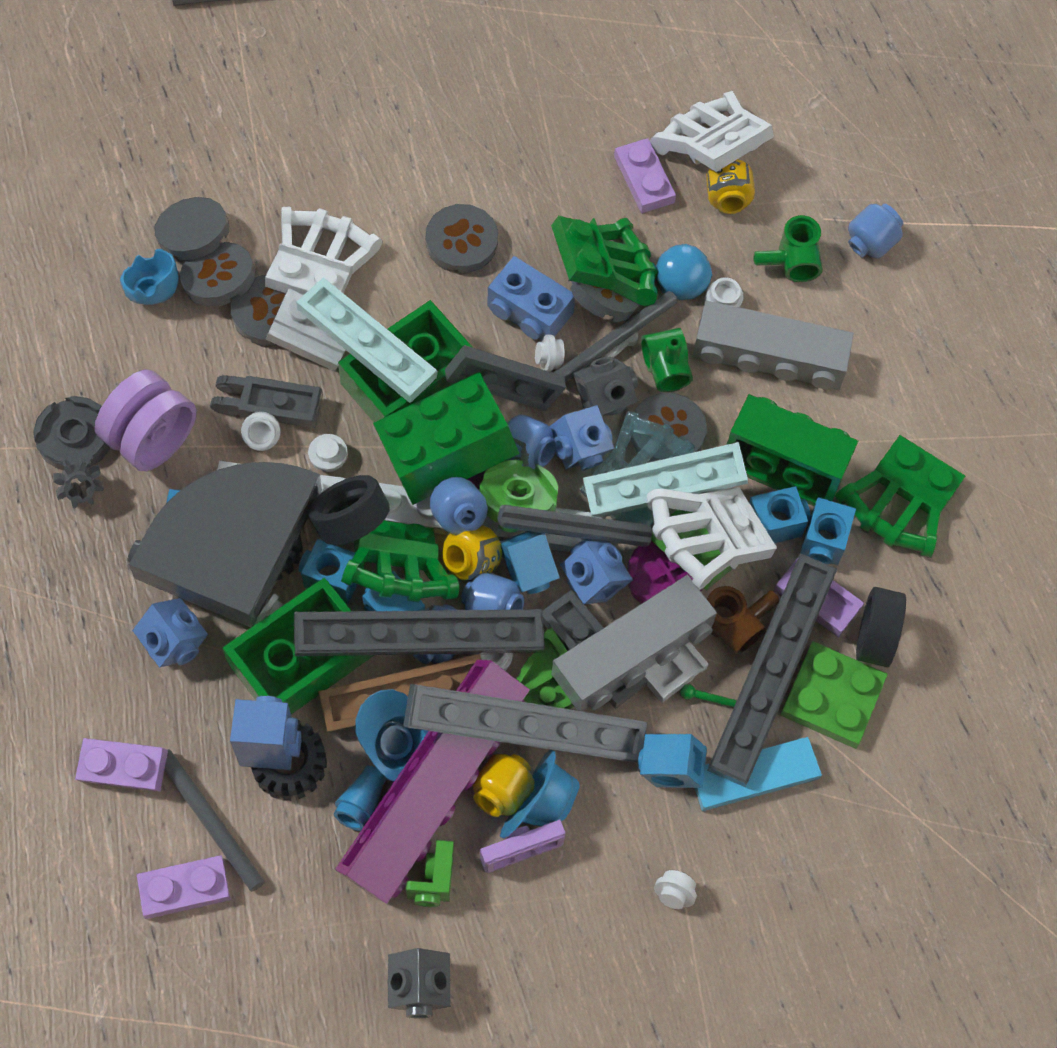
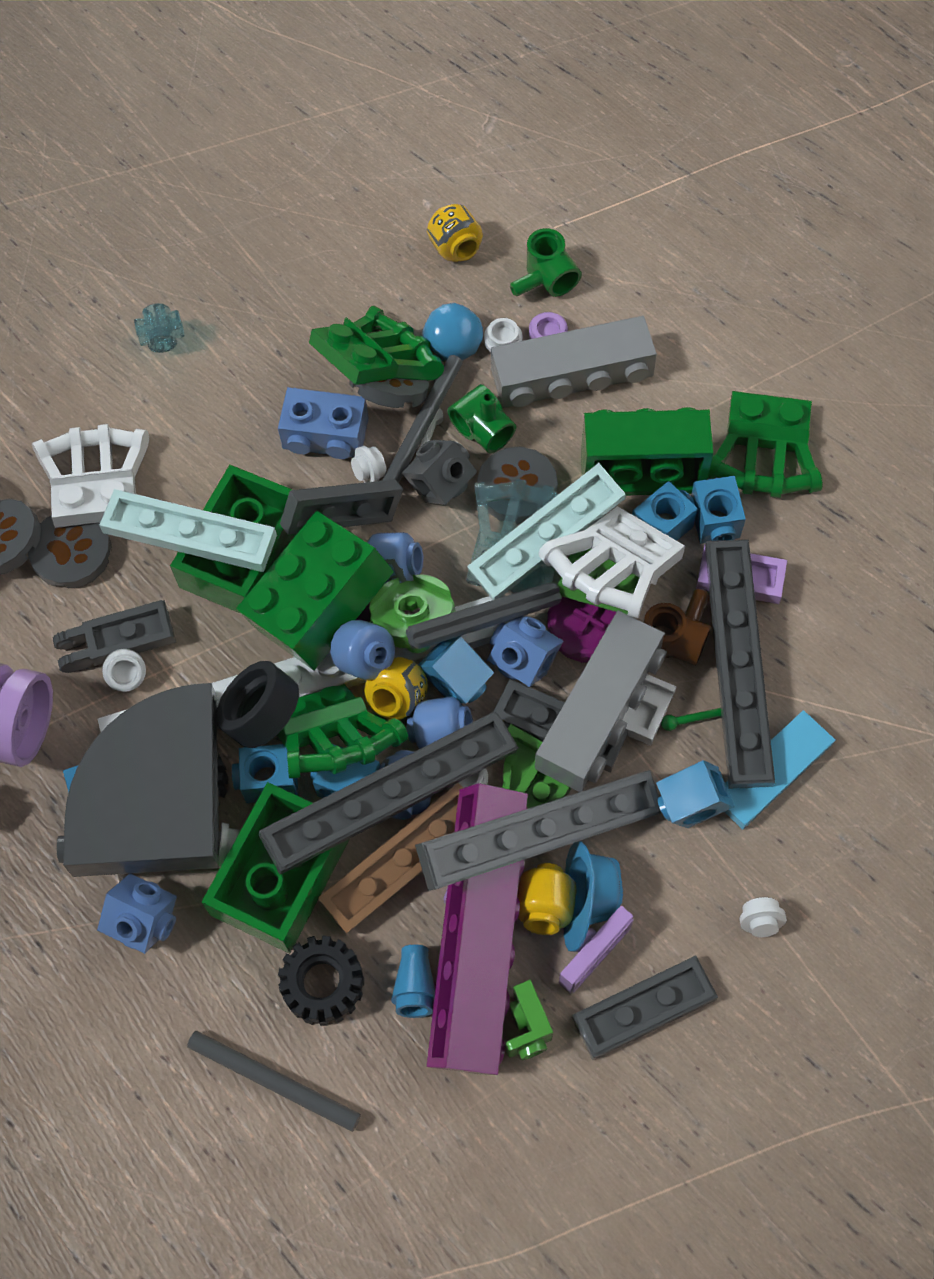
camera: 20 degrees left, 0 degrees up
(121, 764) = (155, 1071): lavender plate -> none
(183, 887) = (281, 1163): lavender plate -> none
(264, 733) = (292, 966): medium blue brick -> none
(302, 336) = (117, 557): white plate -> none
(327, 452) = (201, 660): white plate -> none
(382, 732) = (407, 904): dark azure piece -> none
(419, 982) = (569, 1136): dark grey brick -> none
(435, 156) = (159, 328): none -> clear light blue gear
(461, 238) = (224, 395): dark grey tile -> none
(539, 913) = (644, 1007): none -> dark grey tile
(582, 438) = (444, 530): medium blue brick -> none
(644, 175) = (368, 260): lavender plate -> none
(722, 142) = (428, 191): white plate -> none
(768, 302) = (547, 324): none -> lavender tile
(834, 695) = (805, 659): bright green plate -> none
(875, 230) = (609, 215): medium blue head -> none
(881, 627) = (817, 574): black tyre -> none

